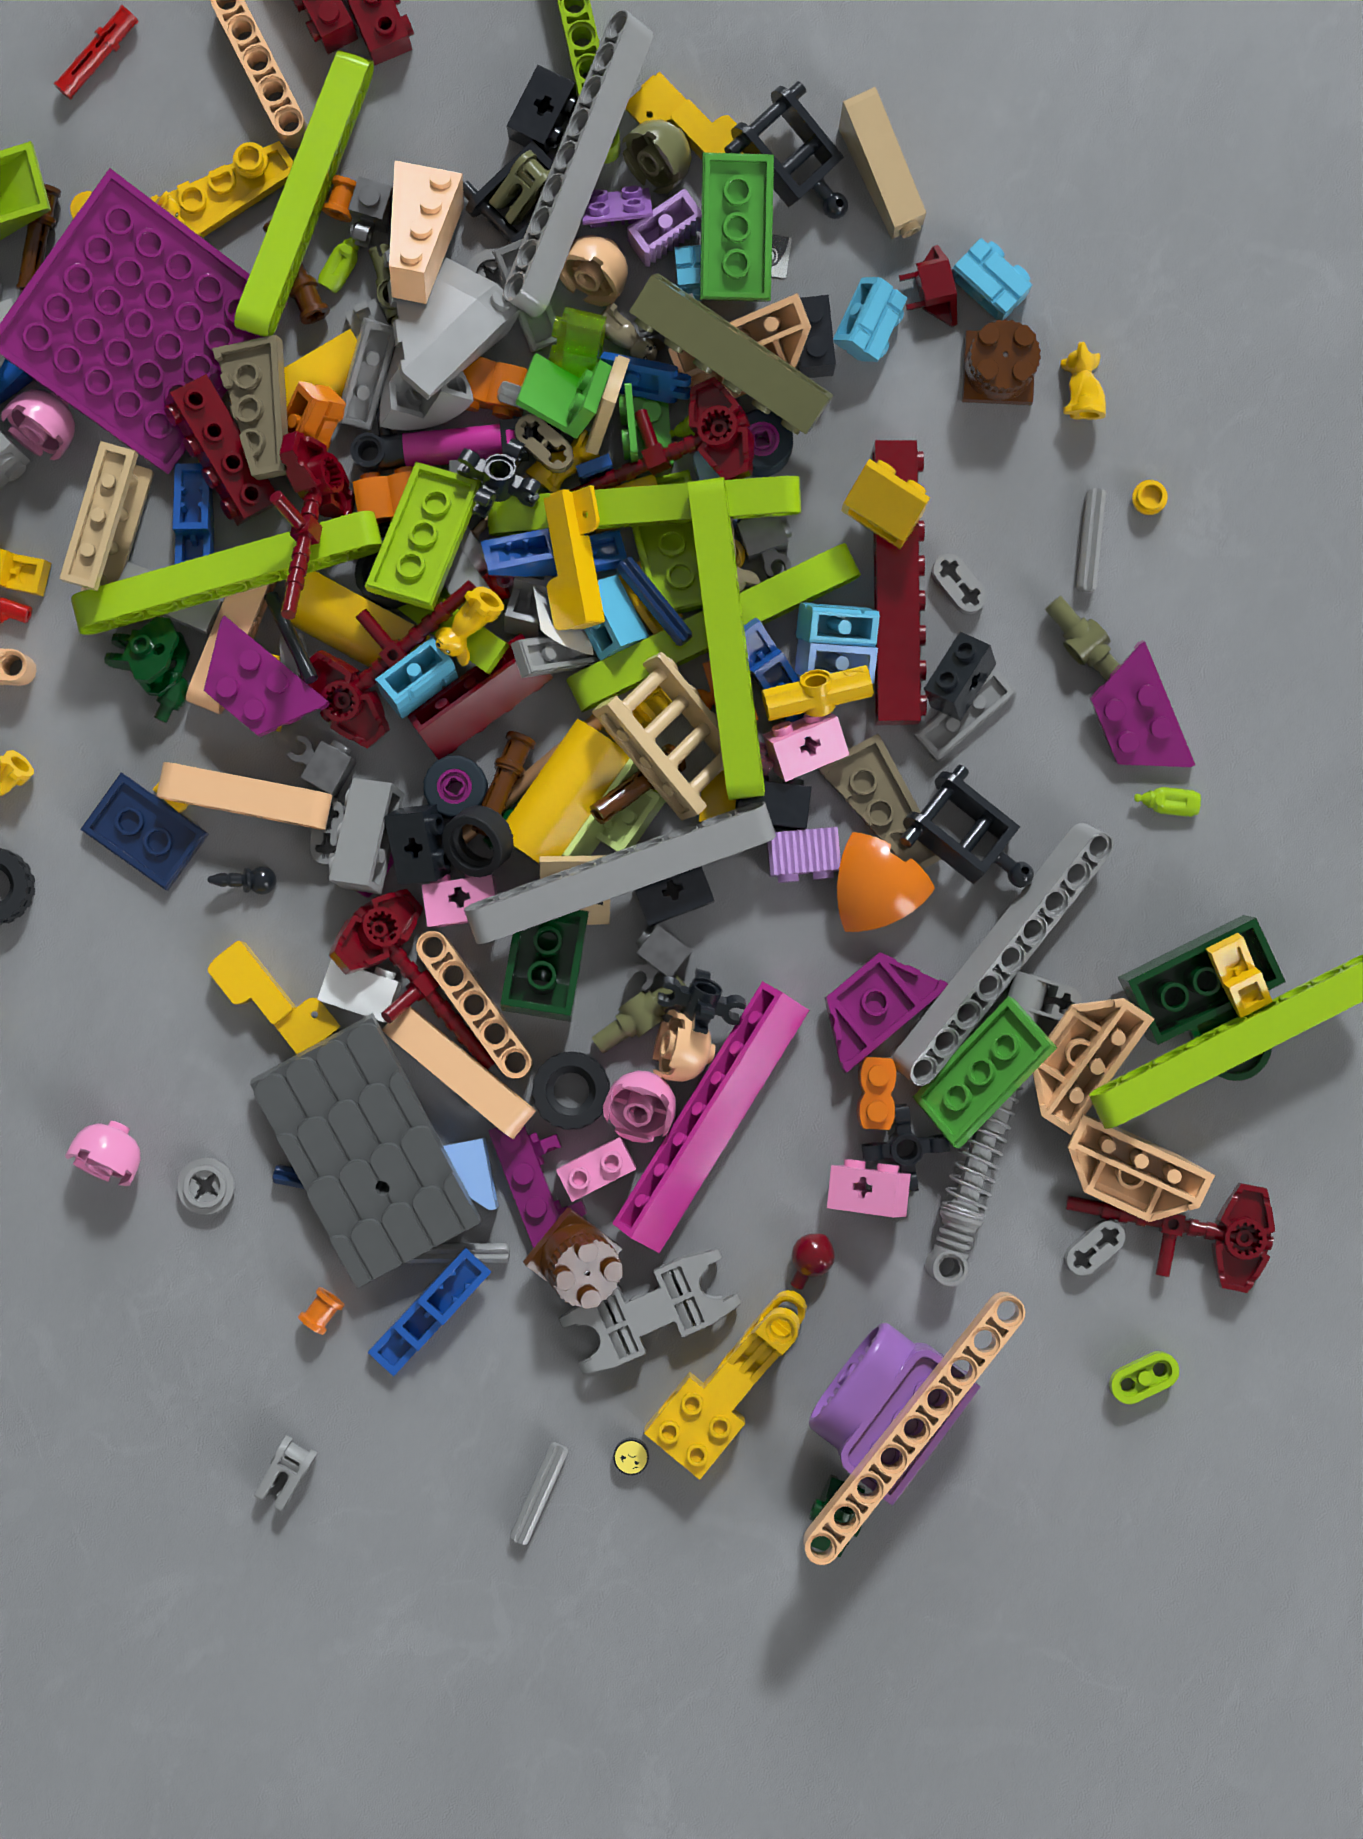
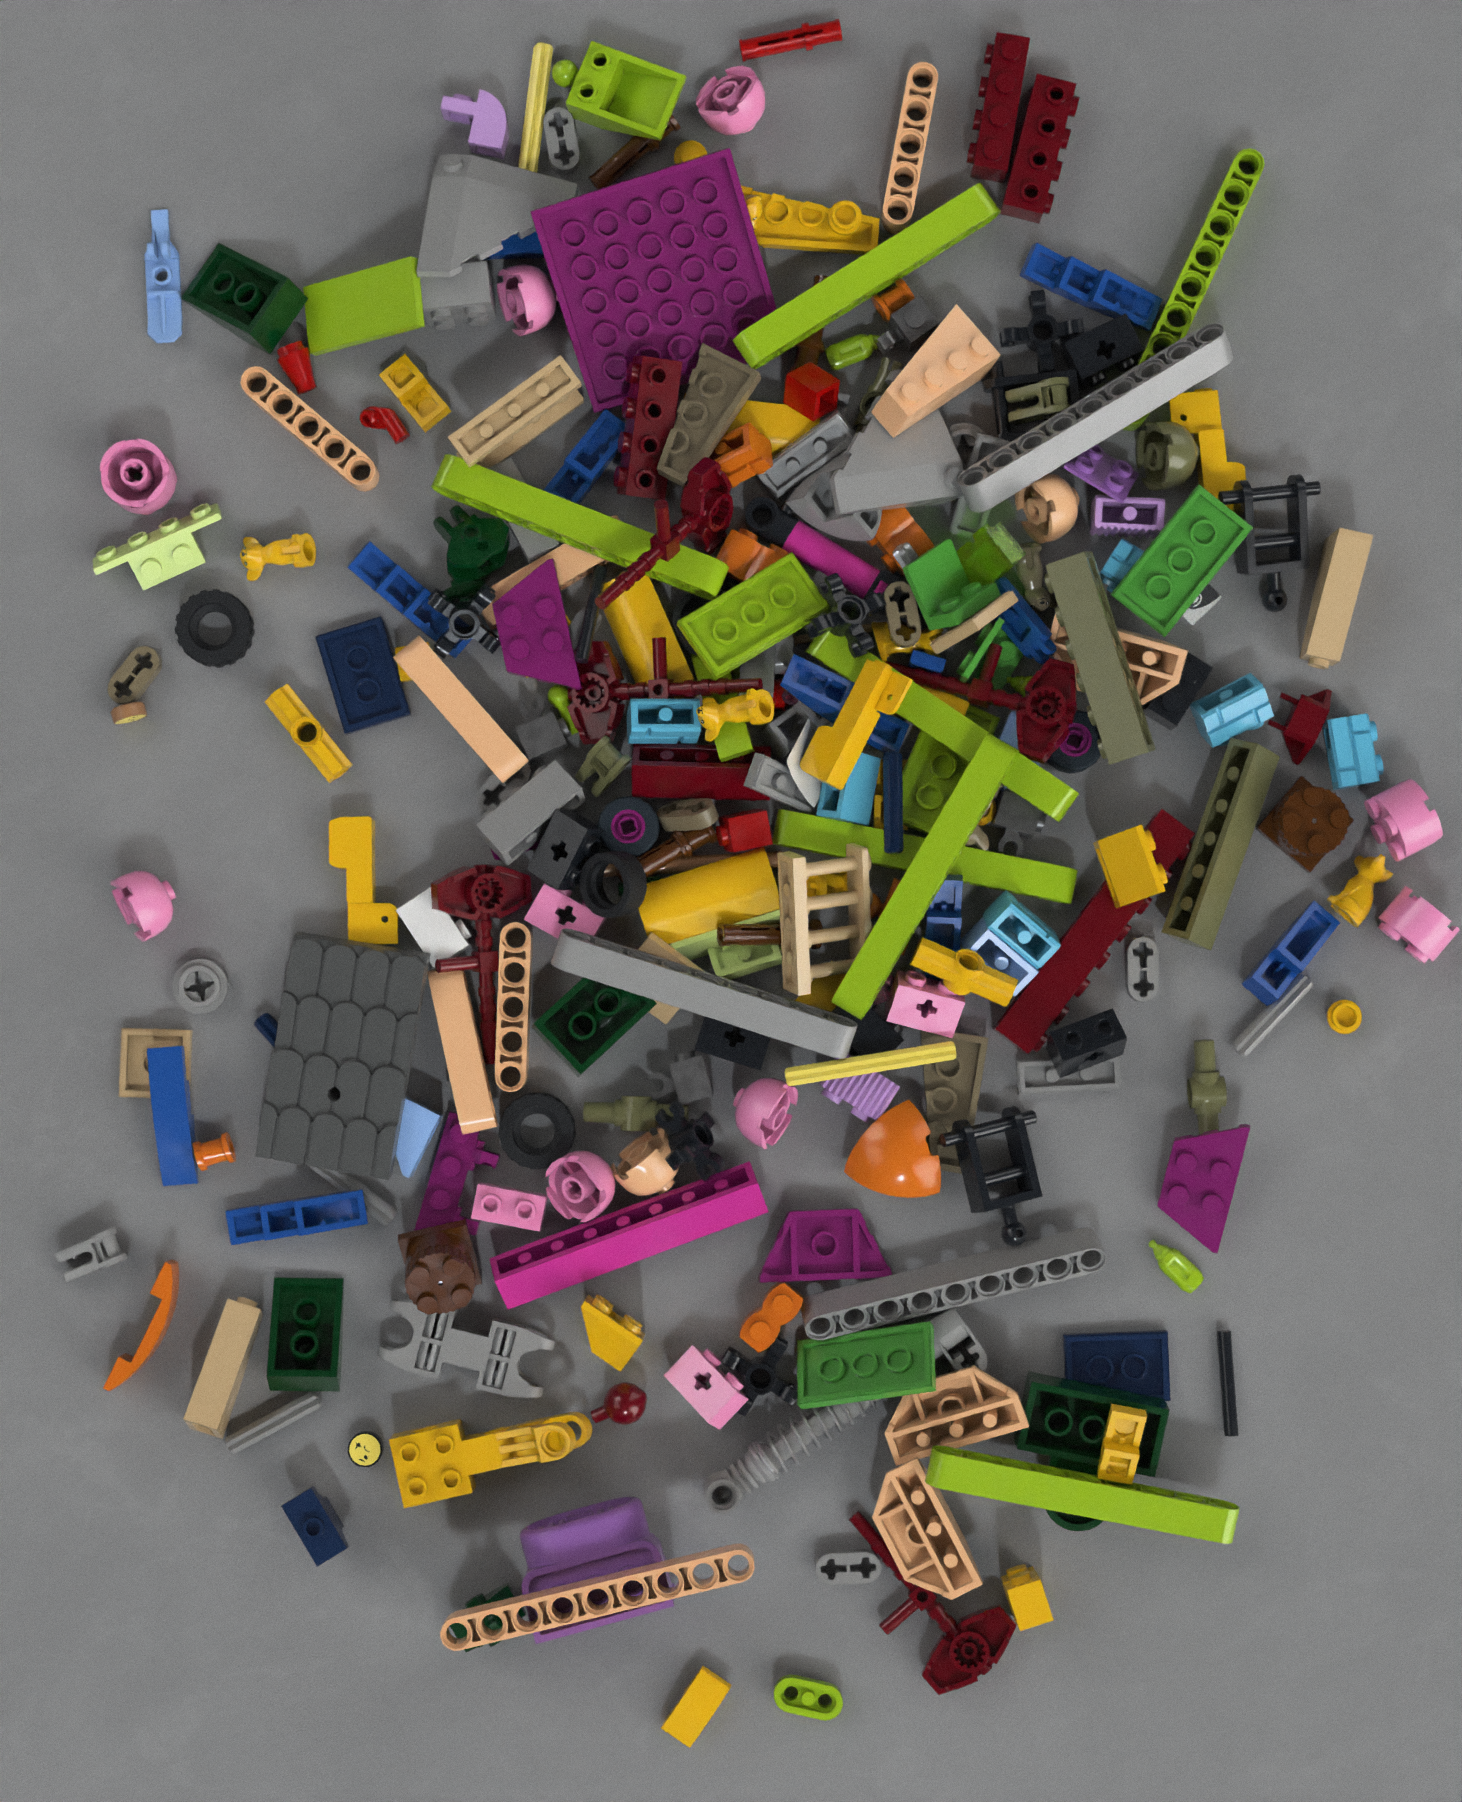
camera: 35 degrees right, 0 degrees up
(87, 136) = (733, 102): none -> bright pink cylinder
(114, 907) = (294, 717): none -> yellow piece
(136, 739) = (403, 593): none -> blue slope
(191, 738) = (444, 605): none -> black pin
(217, 1276) = (134, 1061): none -> tan tile
(260, 880) = (422, 781): black bar -> none
(263, 1307) = (172, 1115): none -> blue slope
(318, 727) = (558, 698): none -> lime piece
(331, 319) = (811, 391): none -> red brick
(368, 1452) = (165, 1288): none -> orange slope
(395, 746) = (606, 761): none -> olive piece
(465, 1480) = (224, 1368): none -> tan slope
(492, 68) = (1090, 287): none -> blue slope
(493, 122) = (1024, 335): none -> black pin
(495, 739) = (688, 814): none -> dark tan beam
(511, 1401) = (306, 1334): none -> dark green slope
(551, 717) = (744, 830): none -> red brick
(638, 1549) = (316, 1525): none -> dark blue brick
(741, 931) = (763, 1110): none -> bright pink cylinder
(759, 1209) = (609, 1334): none -> yellow slope
(799, 825) = (870, 1063): none -> light yellow axle
(944, 433) = (1220, 843): none -> olive brick
(1059, 1455) = (696, 1706): none -> yellow slope
(1068, 479) = (1290, 953): none -> blue slope
(1075, 300) = (1403, 819): none -> bright pink brick
(1152, 376) = (1417, 925): none -> bright pink brick
(1184, 912) = (1120, 1361): none -> dark blue tile
(1257, 1159) = (1026, 1597): none -> yellow piece
(1284, 863) = (1227, 1383): none -> black bar

